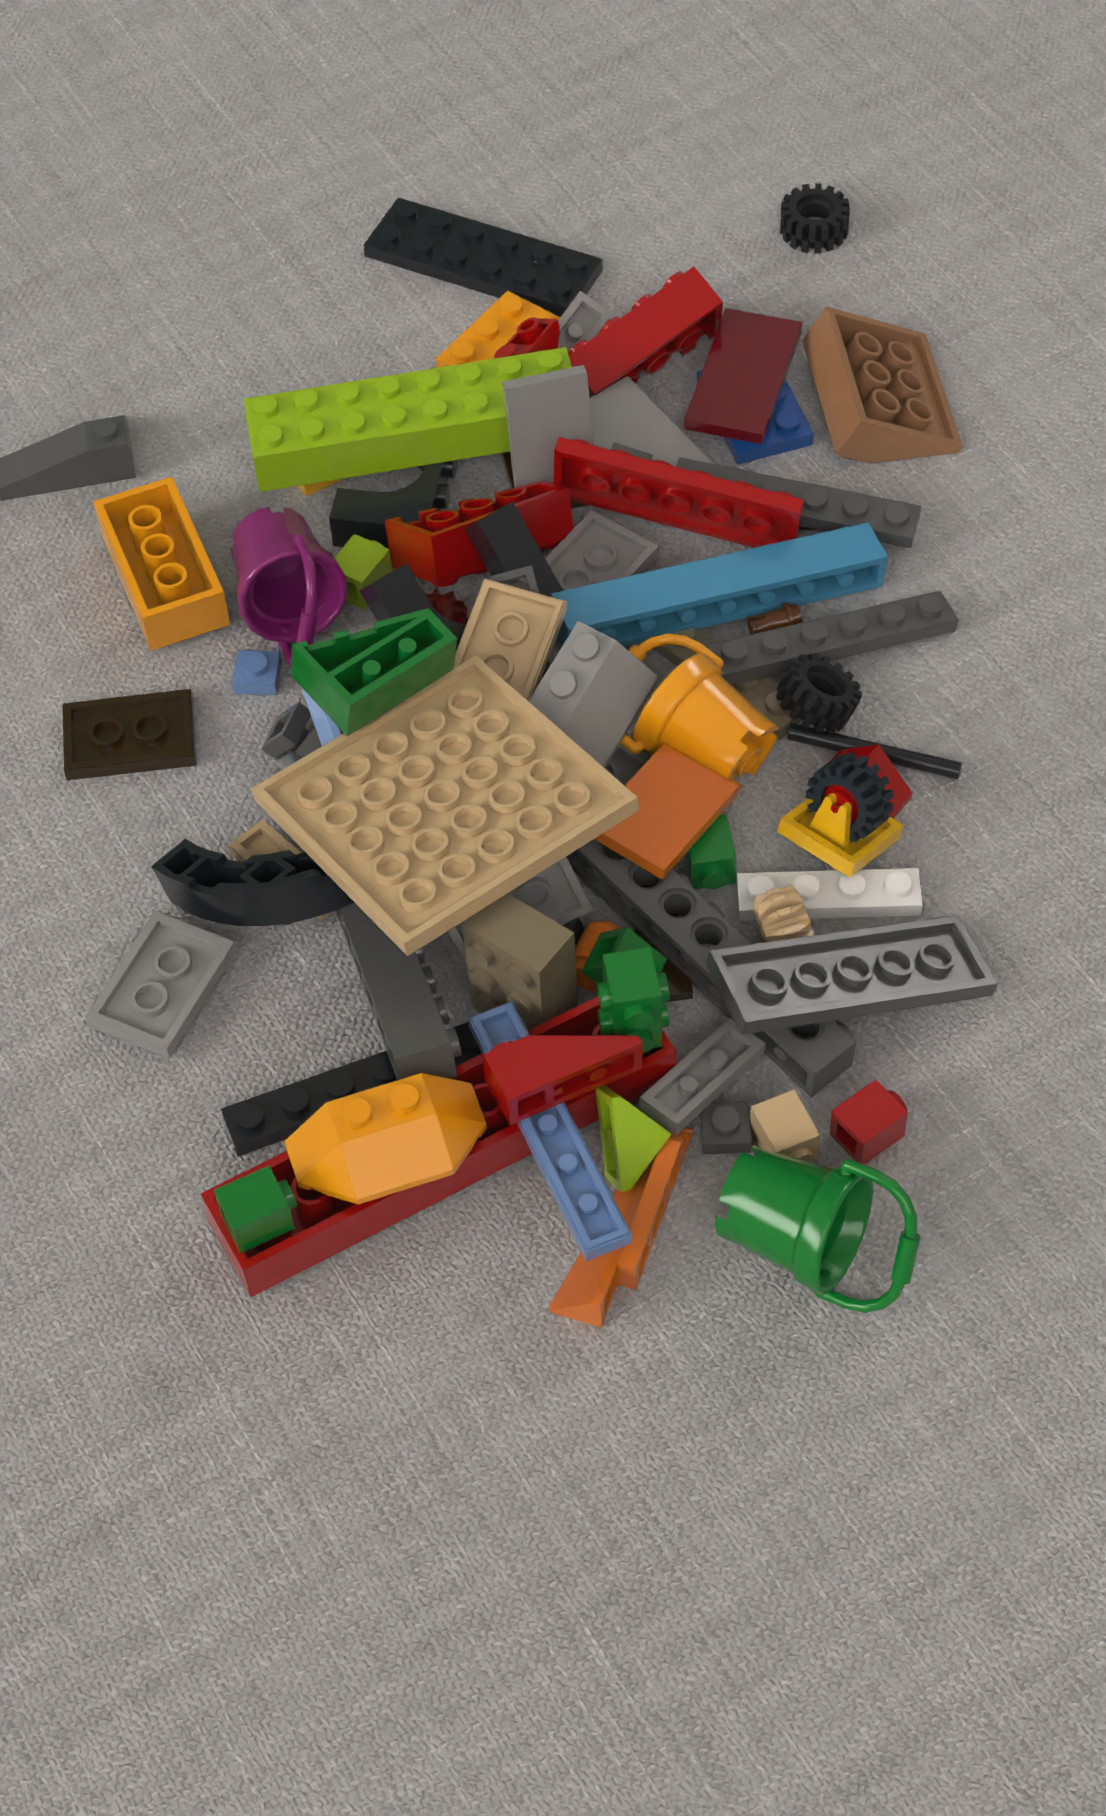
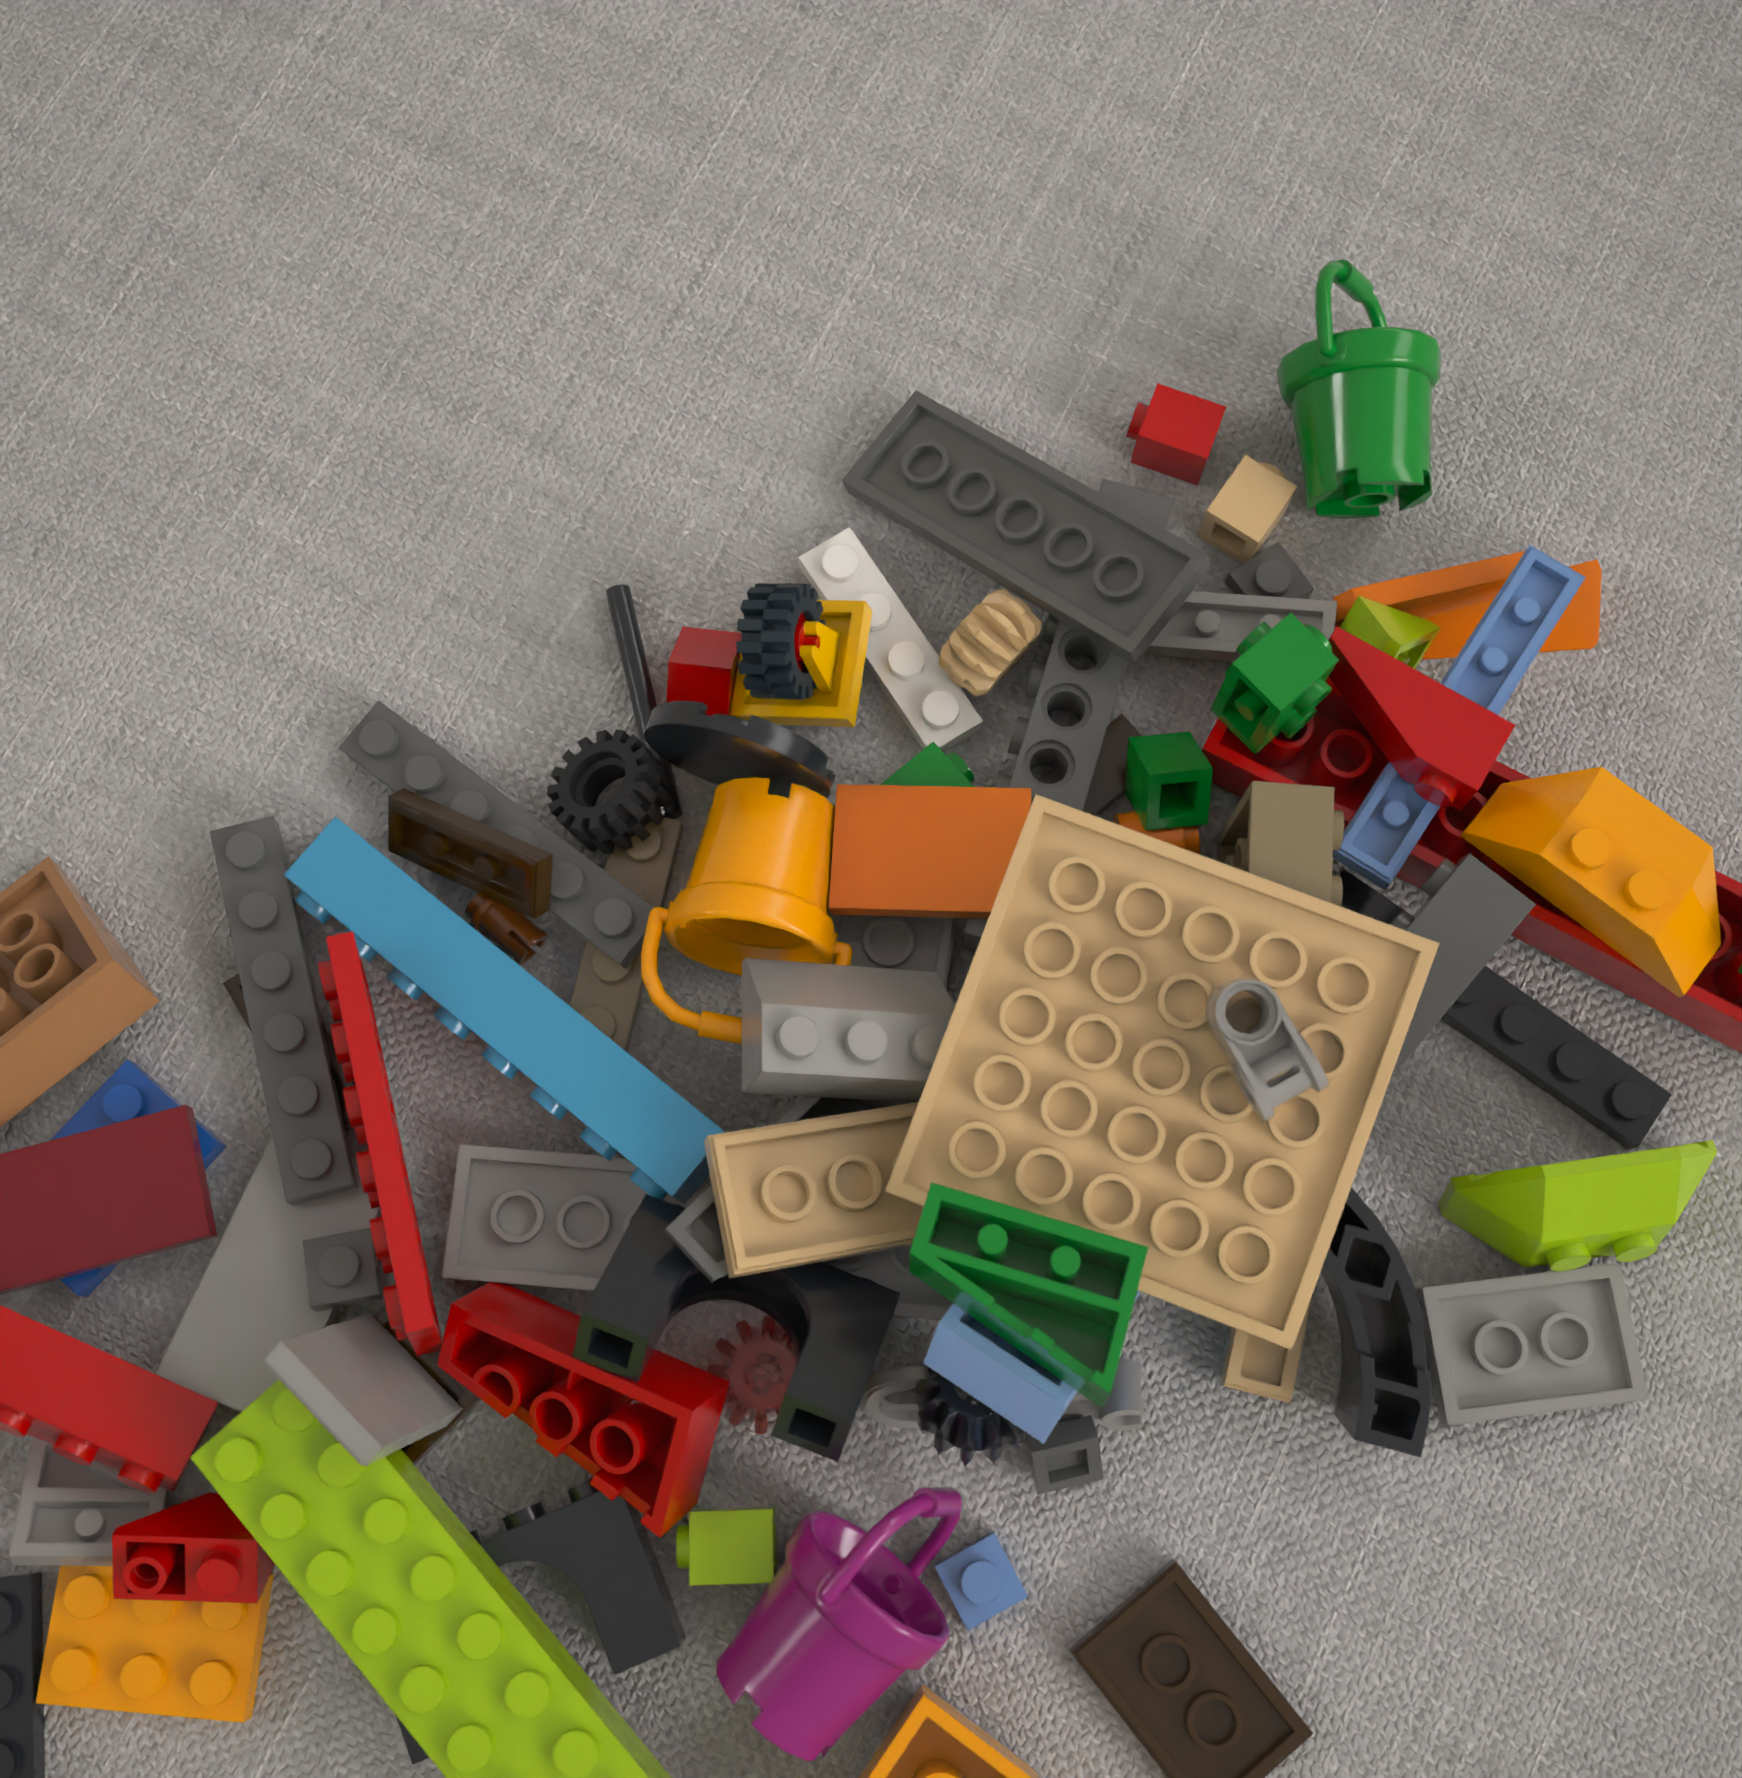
camera: 125 degrees left, 20 degrees up
(209, 1048) = (1579, 1207): none -> lime wedge
(419, 822) = (1265, 1049): none -> light grey piece
(788, 742) = (732, 748): none -> black tile
(824, 608) = (470, 853): none -> dark brown tile

